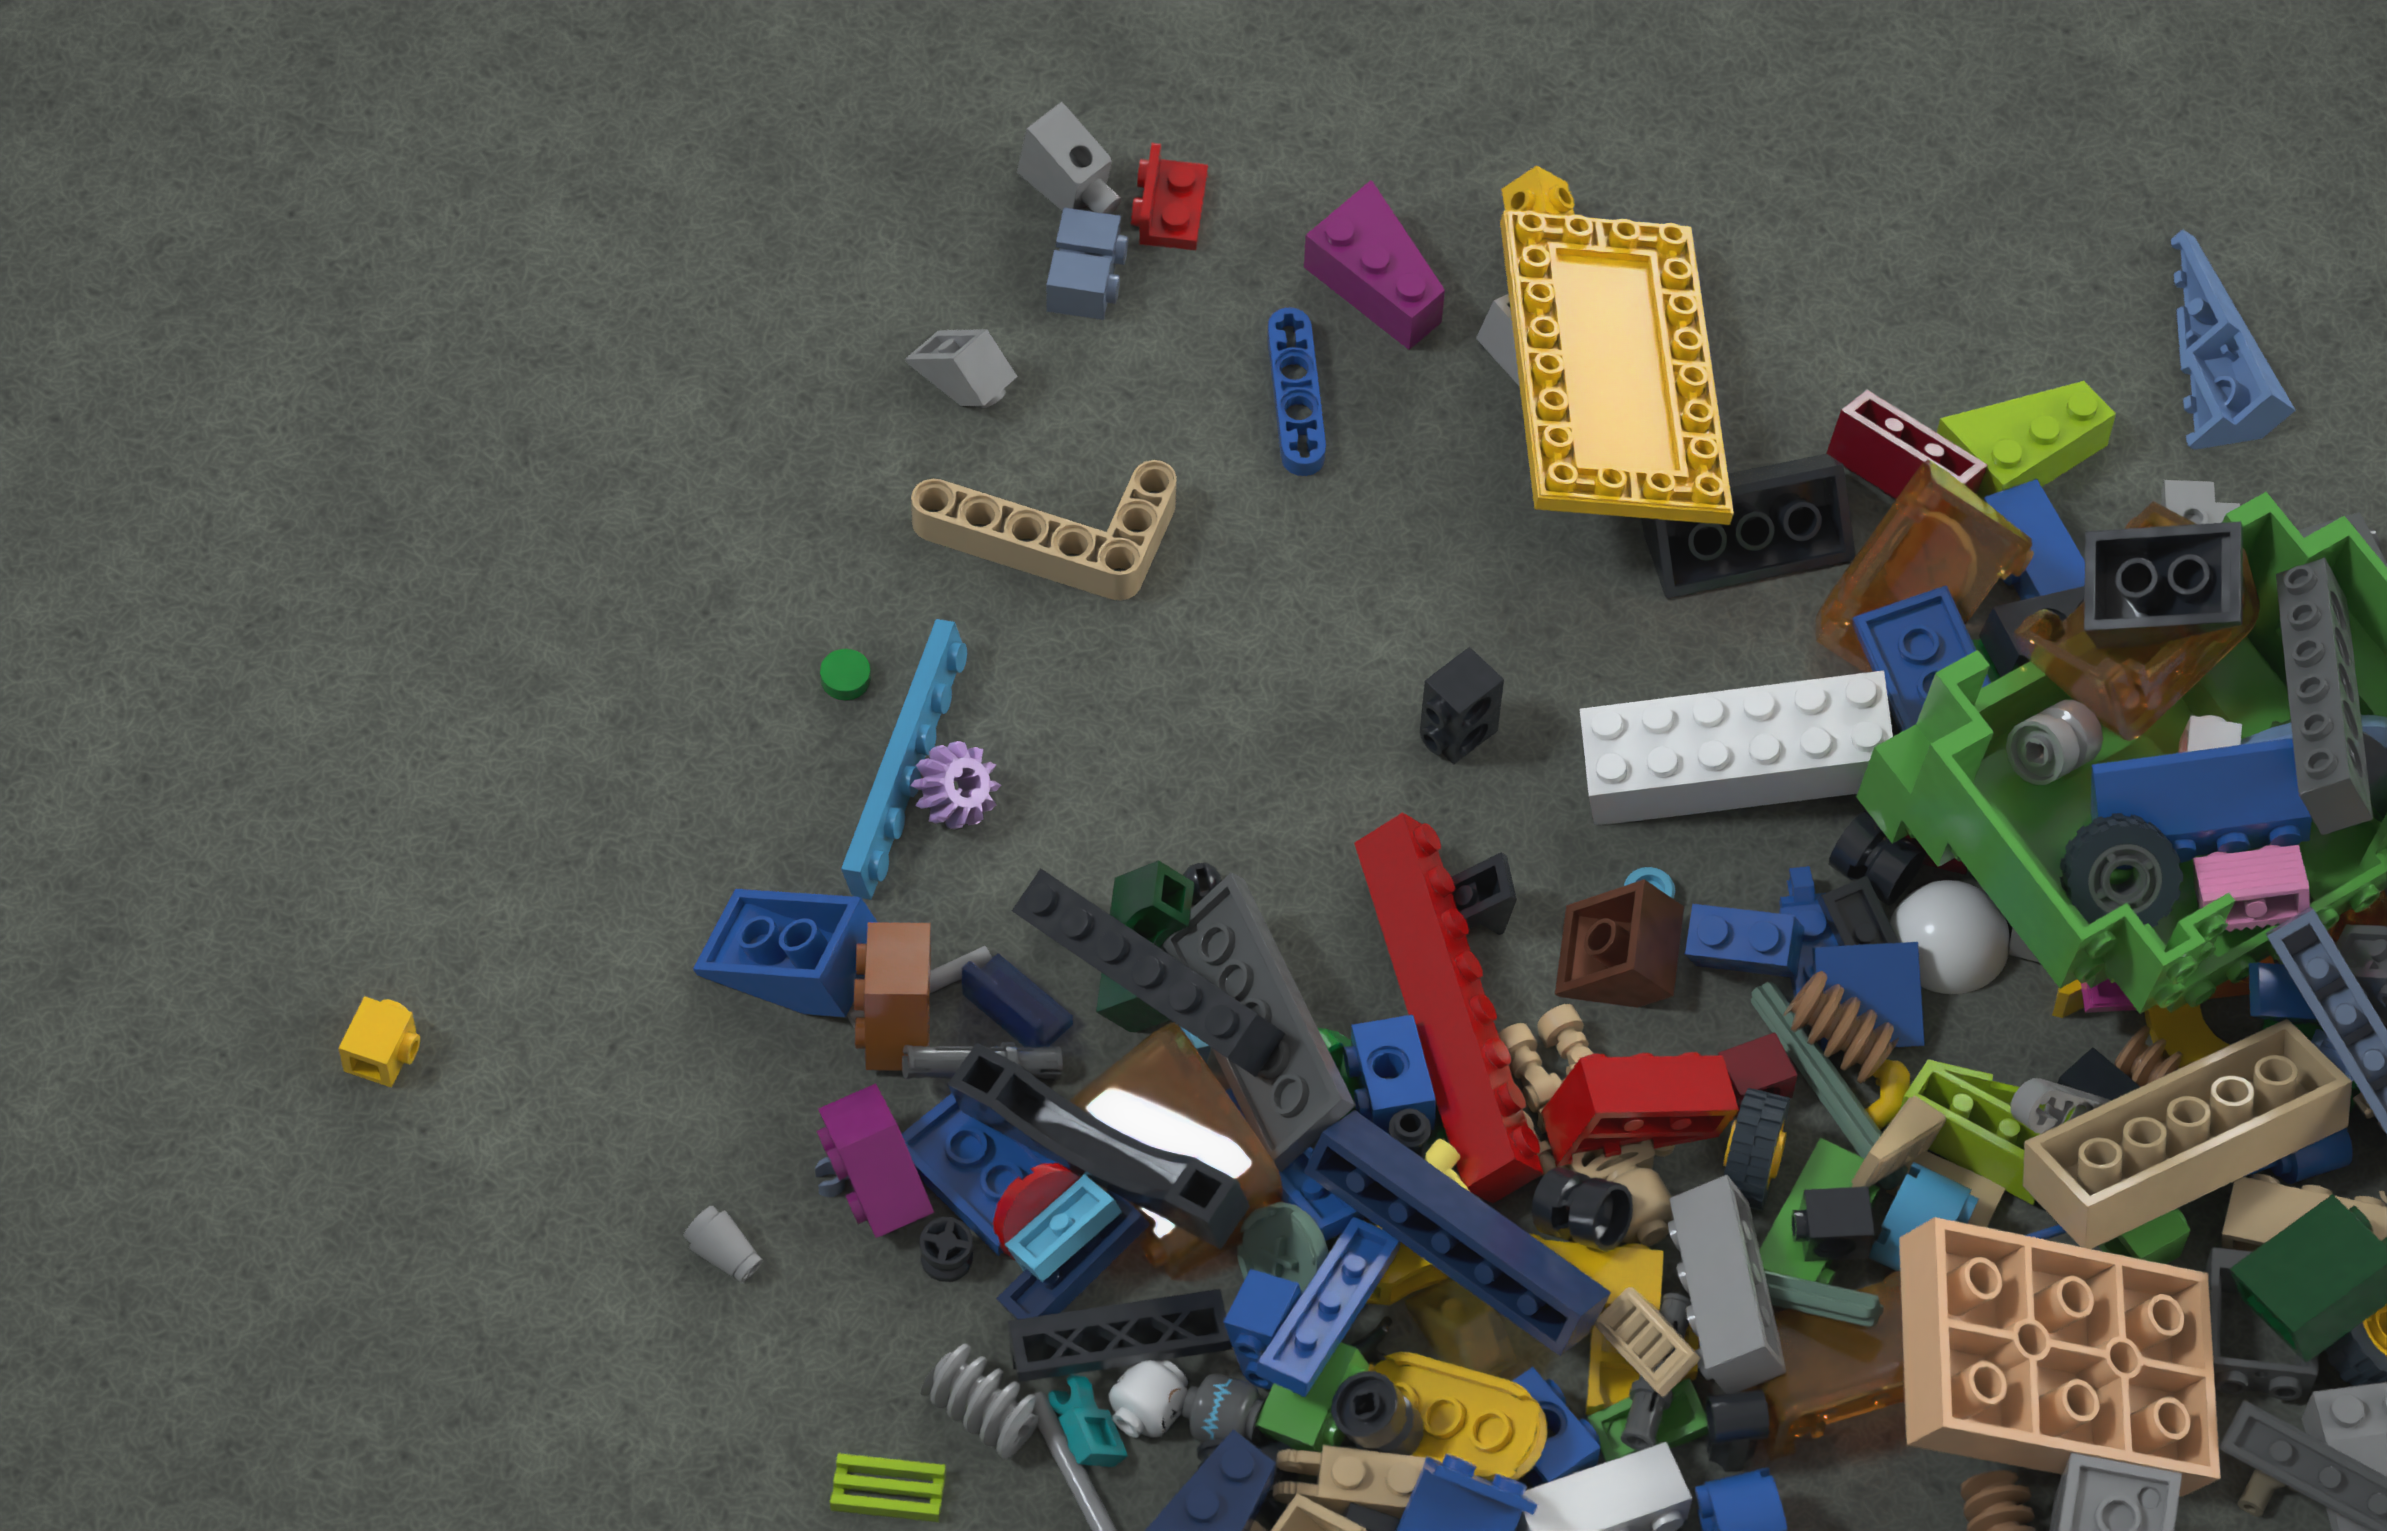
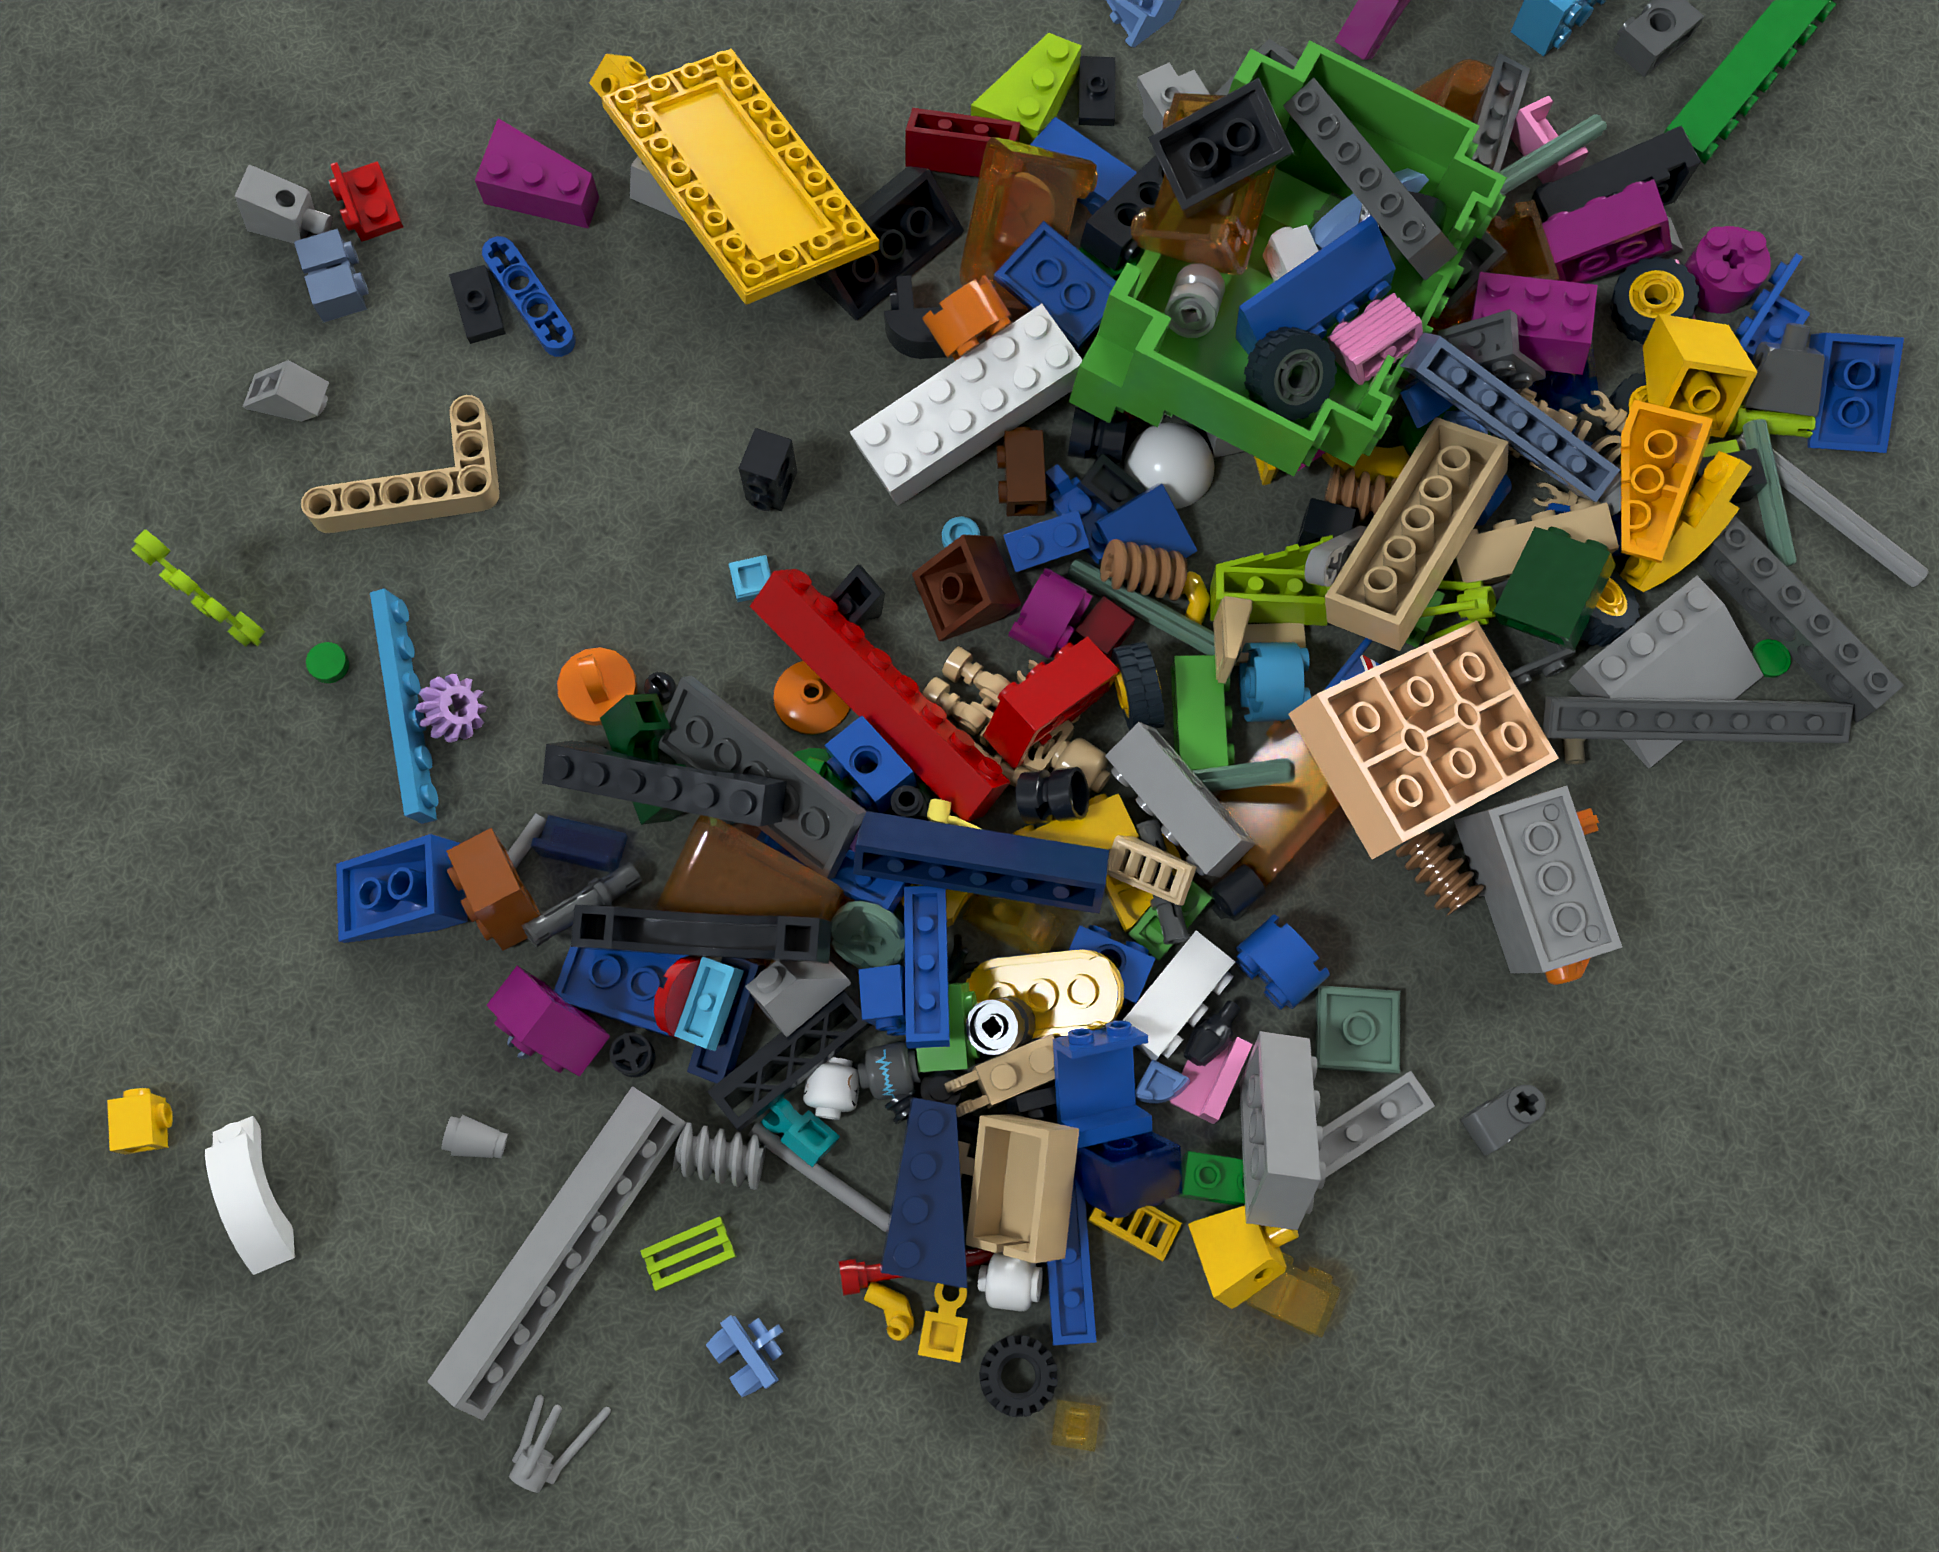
camera: 30 degrees left, 15 degrees up
(453, 1173) = (245, 1199): none -> white arch
(750, 1400) = (555, 1254): none -> light grey brick
(751, 546) = (152, 550): none -> lime plant
(1127, 838) = (594, 683): none -> orange tile
(1166, 1265) = (795, 991): none -> light grey slope
(1232, 372) = (477, 304): none -> black plate
(1354, 994) = (804, 713): none -> orange dish
(1370, 812) = (749, 577): none -> medium azure tile
(1700, 1014) = (1049, 612): none -> magenta brick
(1726, 639) = (905, 324): none -> black brick
(1763, 858) = (1024, 472): none -> reddish brown brick
(1788, 645) = (967, 318): none -> orange brick
(1834, 1224) = (1223, 716): black brick -> none
(2114, 477) = (1096, 91): none -> black plate
(2211, 1252) = (1475, 604): none -> lime plant

